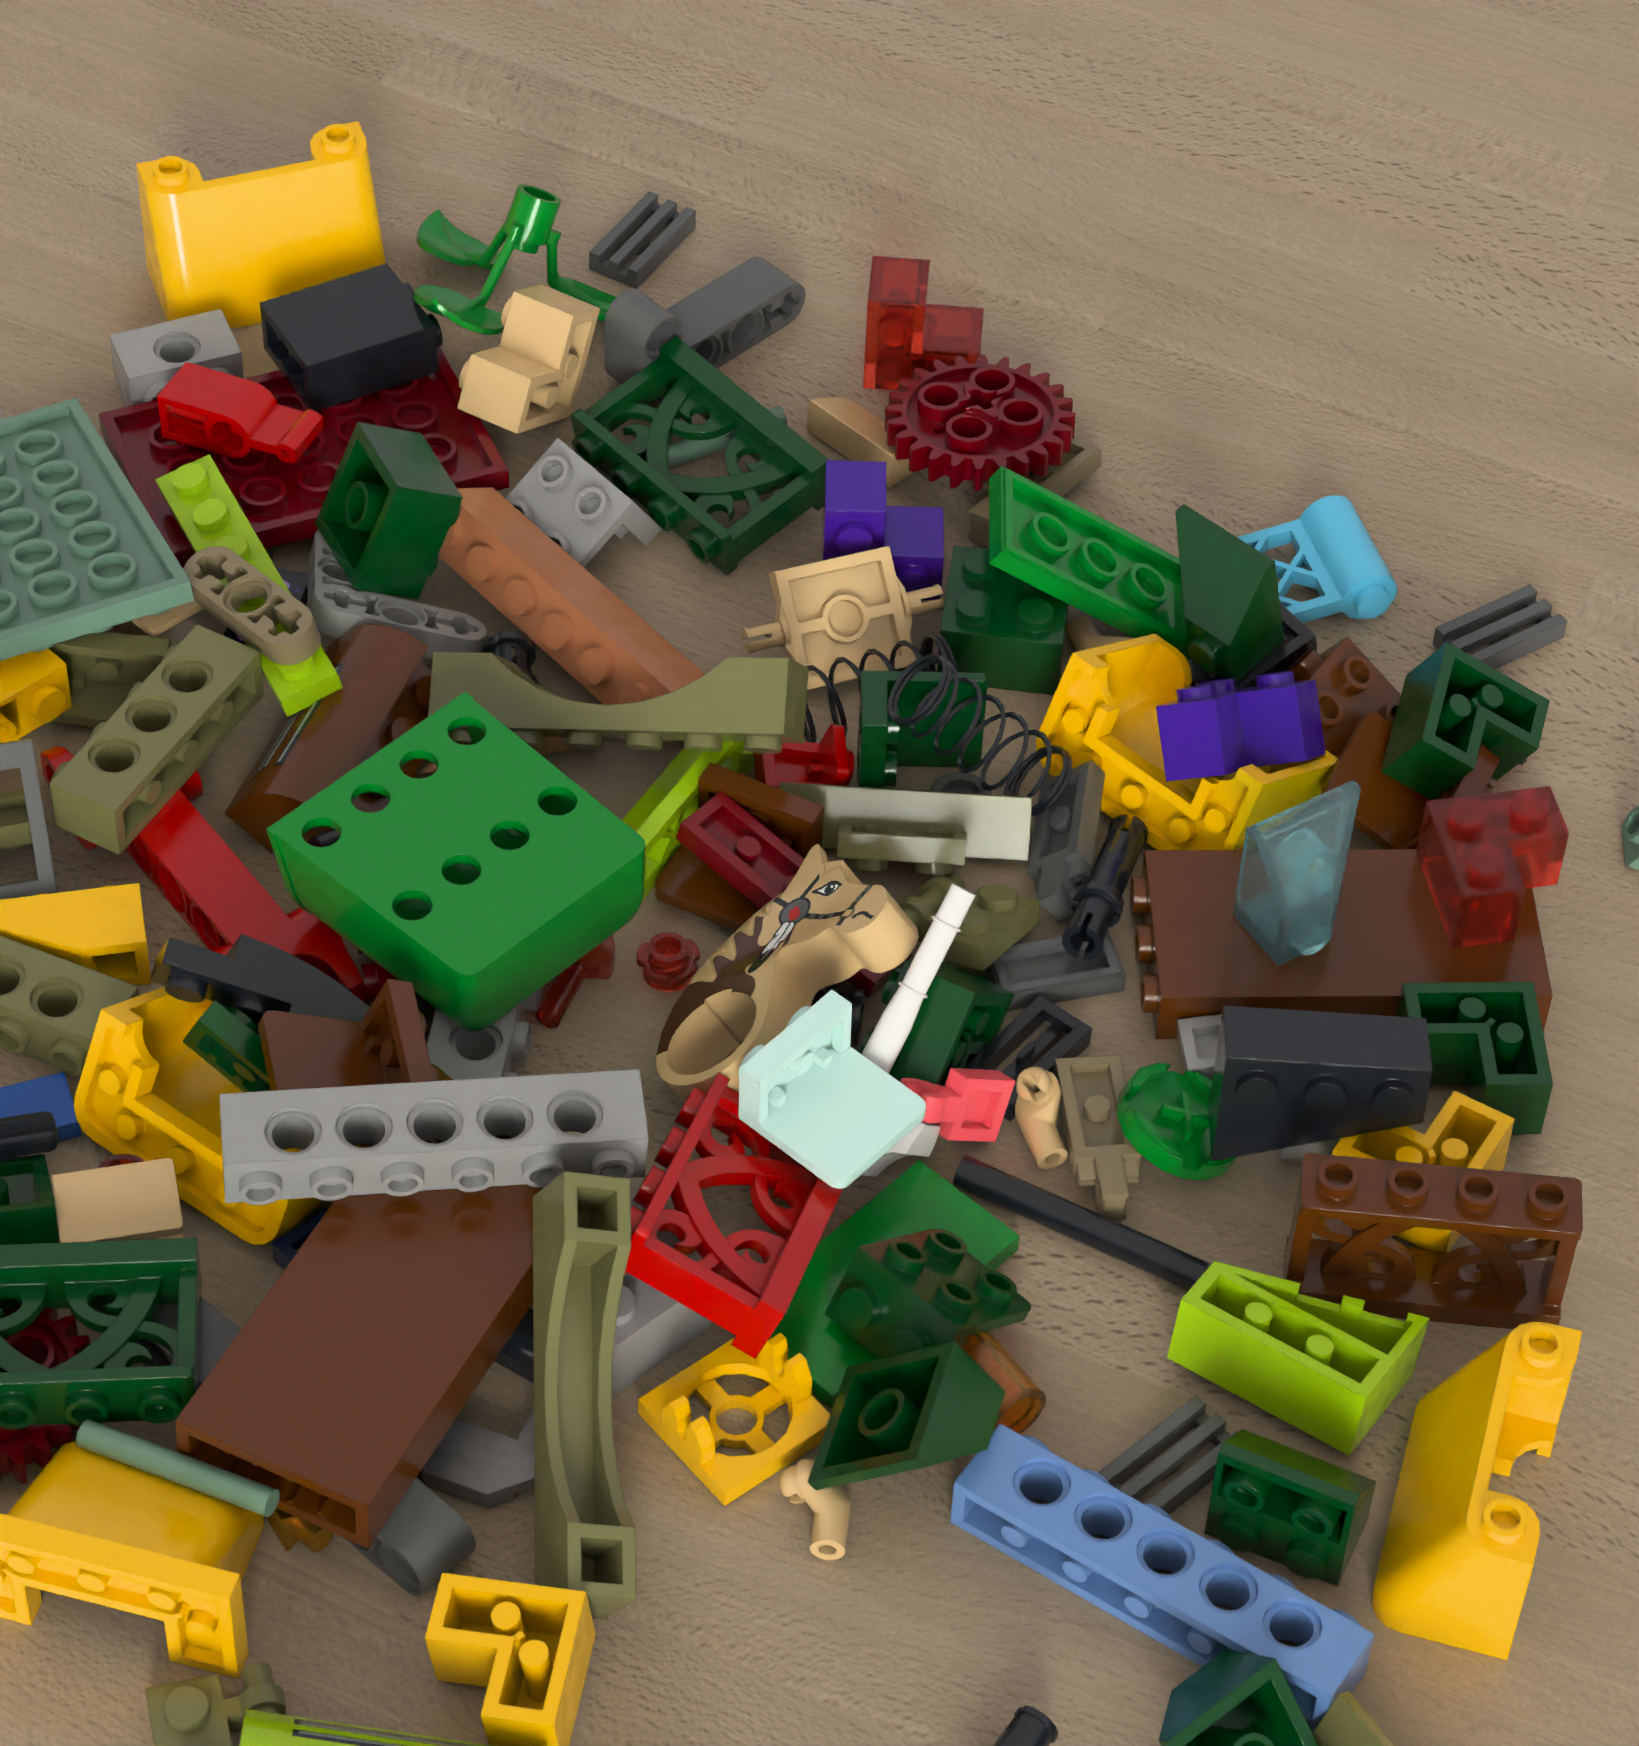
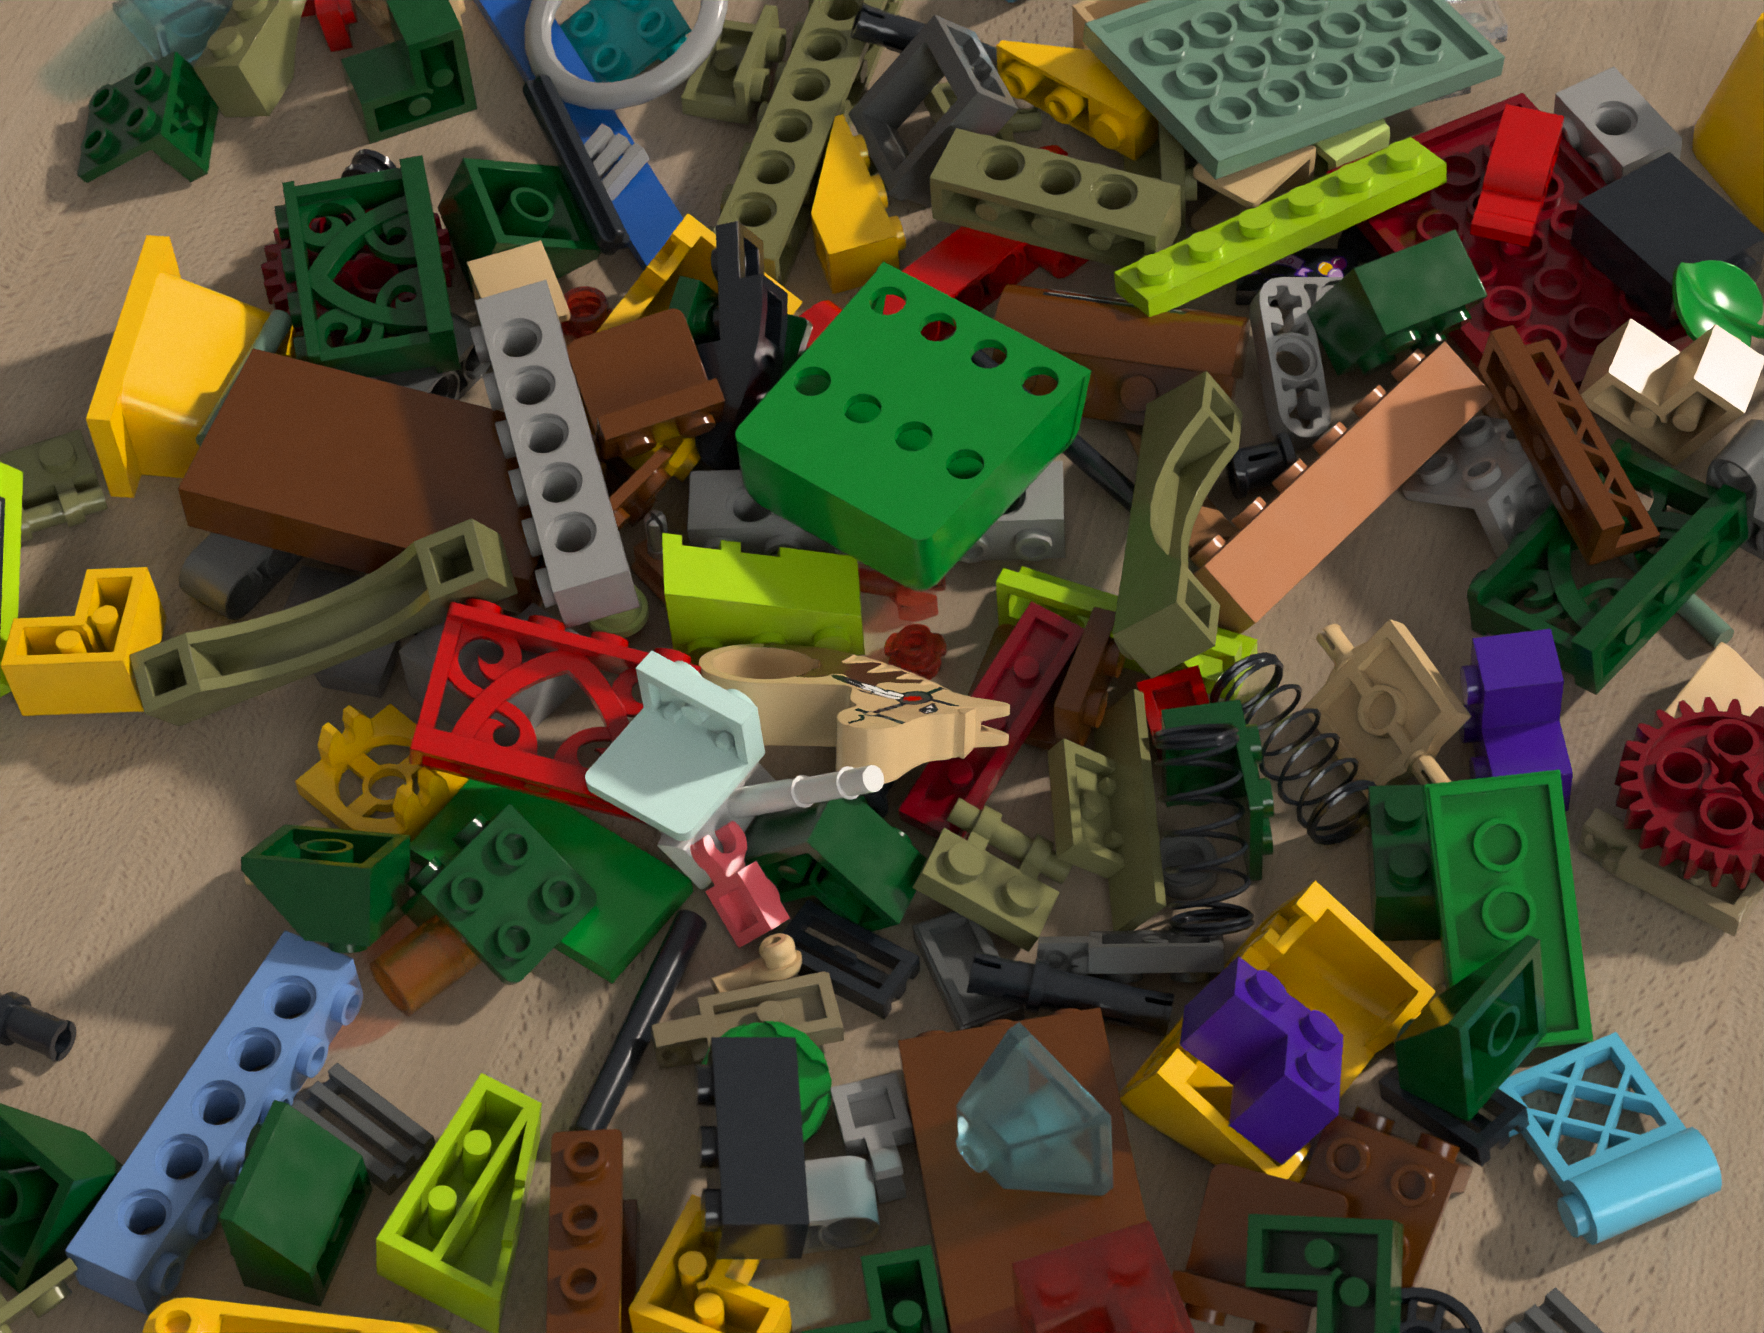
camera: 90 degrees right, 5 degrees up
(257, 626) = (1185, 241): dark tan beam -> none
(597, 433) = (1557, 453): none -> reddish brown fence
(606, 1022) = (760, 599): none -> lime wedge

